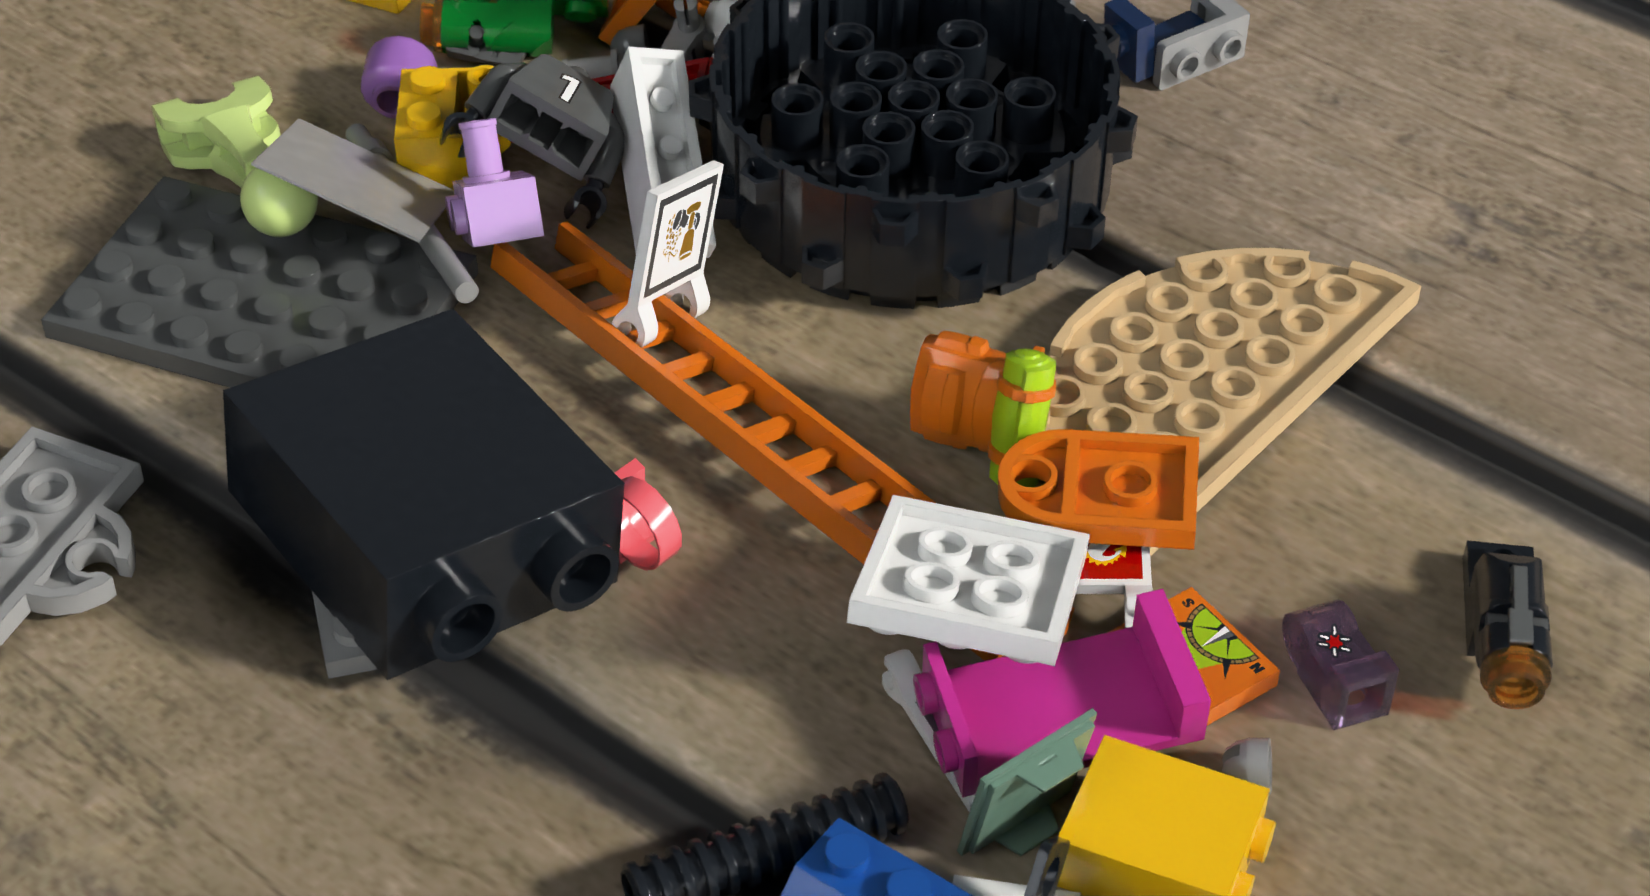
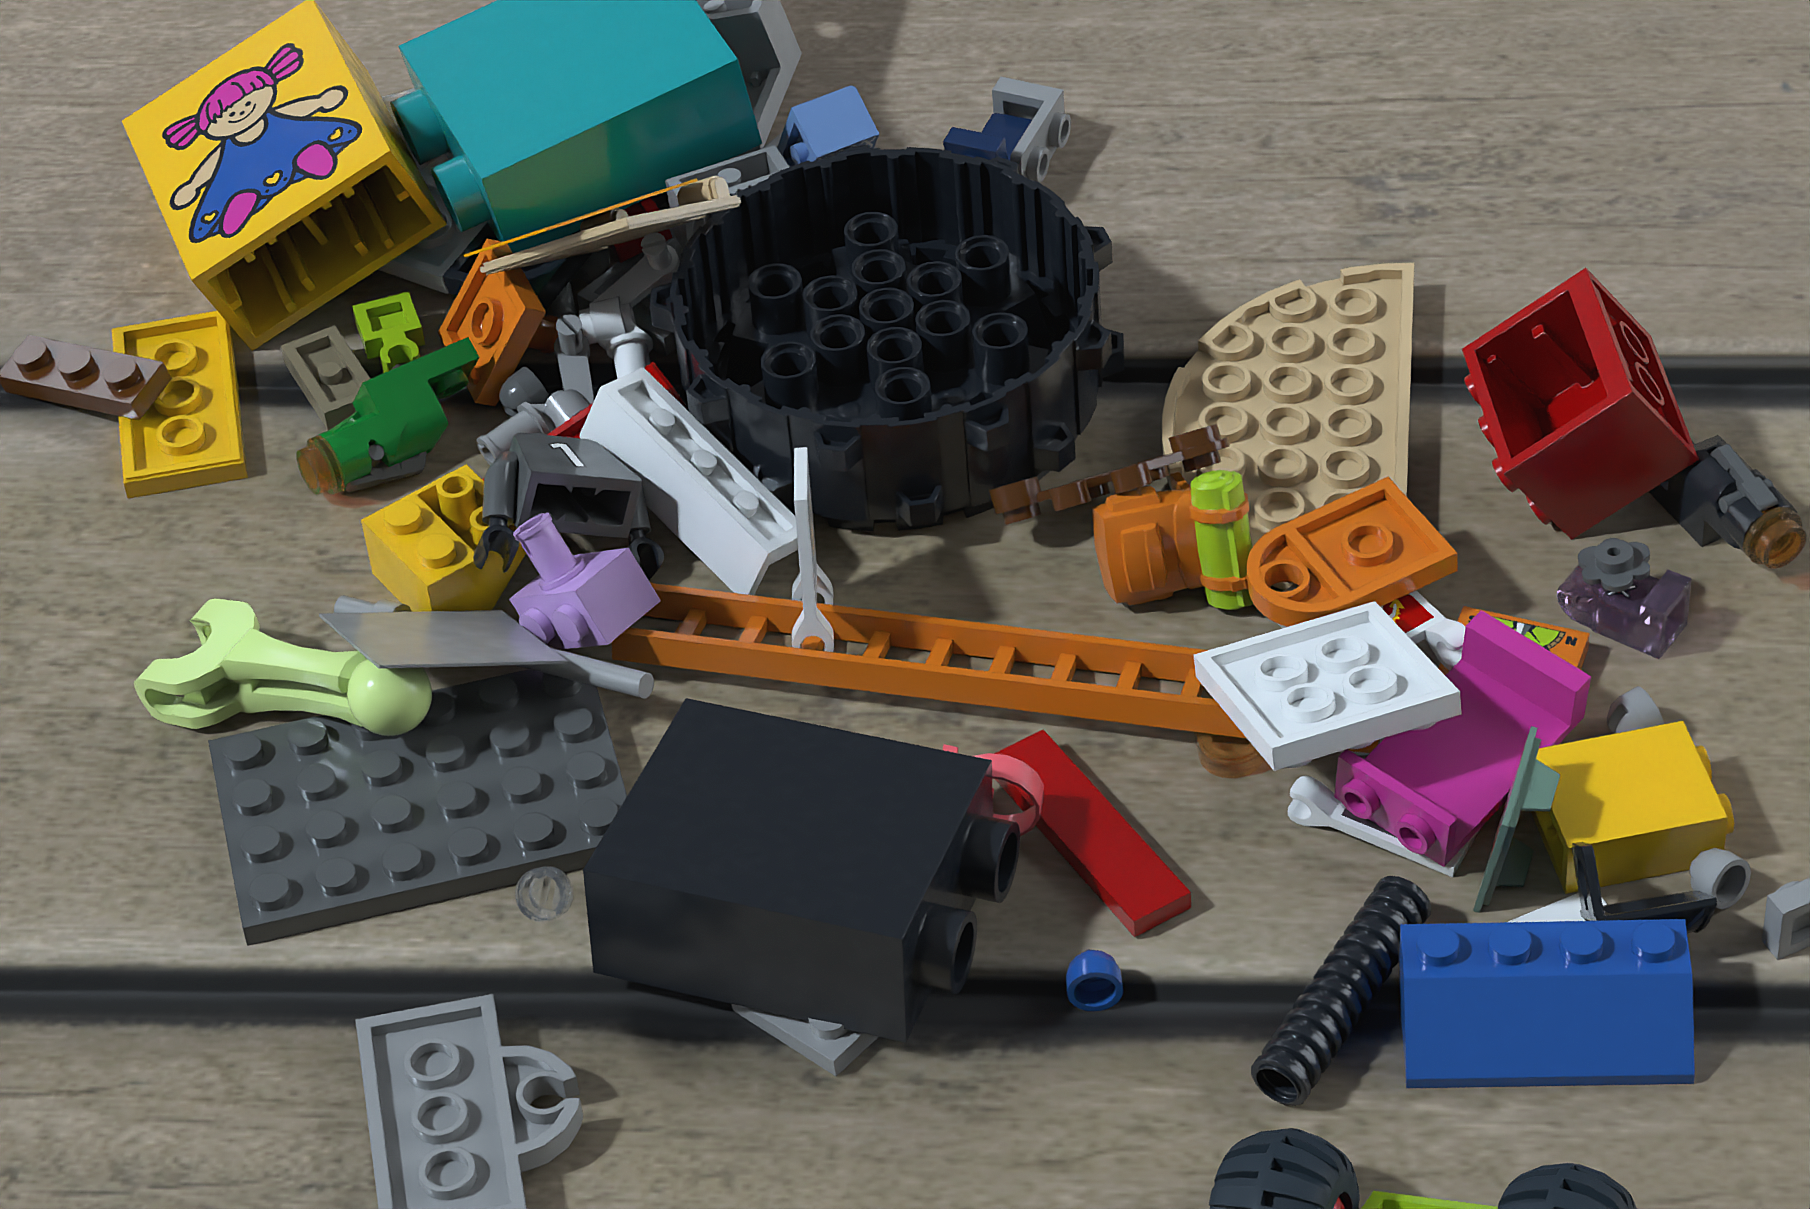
camera: 30 degrees left, 0 degrees up
(383, 70) = (331, 533): medium lavender head -> none
(580, 718) = (1094, 981): none -> blue hinge
(705, 602) = (1097, 839): none -> red tile
(1048, 331) = (1193, 448): none -> reddish brown plant
(1342, 619) = (1614, 564): none -> dark grey plant
(1427, 464) = (1577, 405): none -> red container

